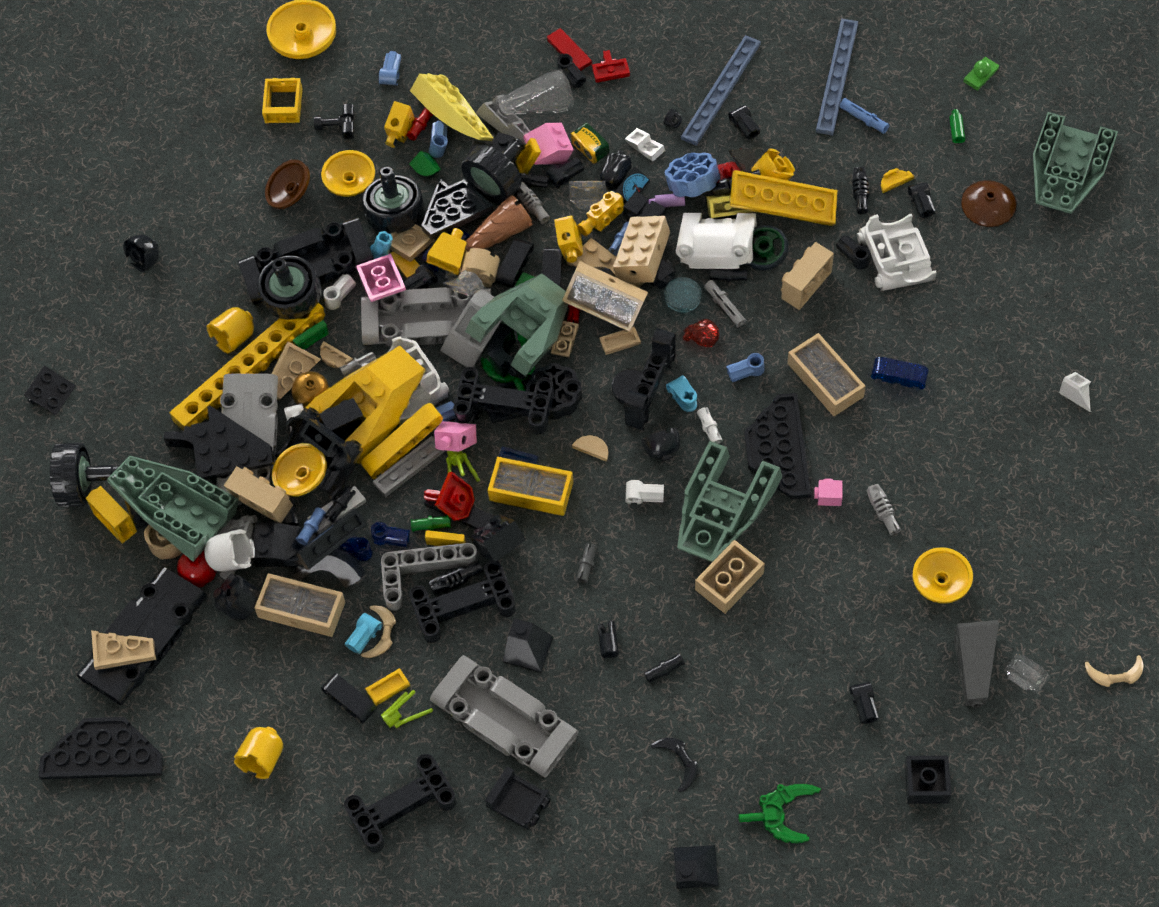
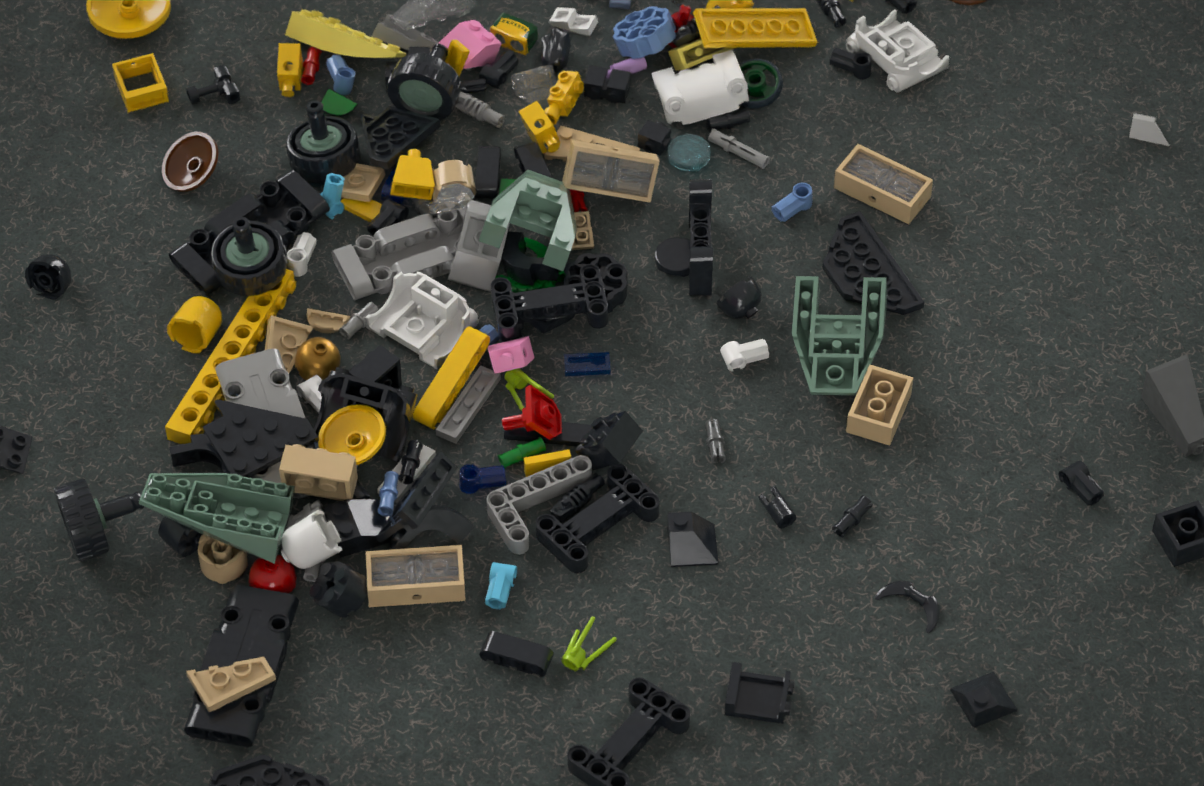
camera: 25 degrees left, 10 degrees down
(111, 514) = (147, 549): yellow window -> none
(259, 752) = (443, 739): yellow cylinder -> none
(311, 335) = (293, 304): green tile -> none
(345, 166) = (255, 125): yellow dish -> none
(353, 546) = (455, 498): clear blue piece -> none
(380, 278) = (346, 223): bright pink slope -> none
(380, 392) = (406, 326): yellow wedge -> none
(385, 642) = (528, 586): tan piece -> none
(387, 687) = (555, 629): yellow tile -> none
(390, 70) = (251, 23): medium blue piece -> none
(500, 225) = (458, 133): nougat cone -> none
(504, 716) = (701, 616): light grey panel -> none
(530, 486) = (618, 381): brick -> none
(592, 446) = (664, 326): tan tile -> none
(618, 240) = (594, 116): medium blue pin -> none
(619, 341) = (641, 216): tan tile -> none
(633, 182) = (580, 60): slope -> none
(642, 249) = (627, 115): tan brick -> none
(683, 393) = (738, 246): medium azure piece -> none
(703, 333) = (730, 181): clear red piece -> none
(709, 425) = (781, 268): white pin -> none
(773, 813) = (1039, 619): green bar -> none
(807, 275) = (815, 95): tan brick -> none
(829, 492) = (943, 295): bright pink brick -> none
(883, 508) = (1006, 294): light grey hinge -> none
(899, 372) = (957, 162): clear blue beam -> none
(942, 564) = (1102, 328): yellow dish -> none

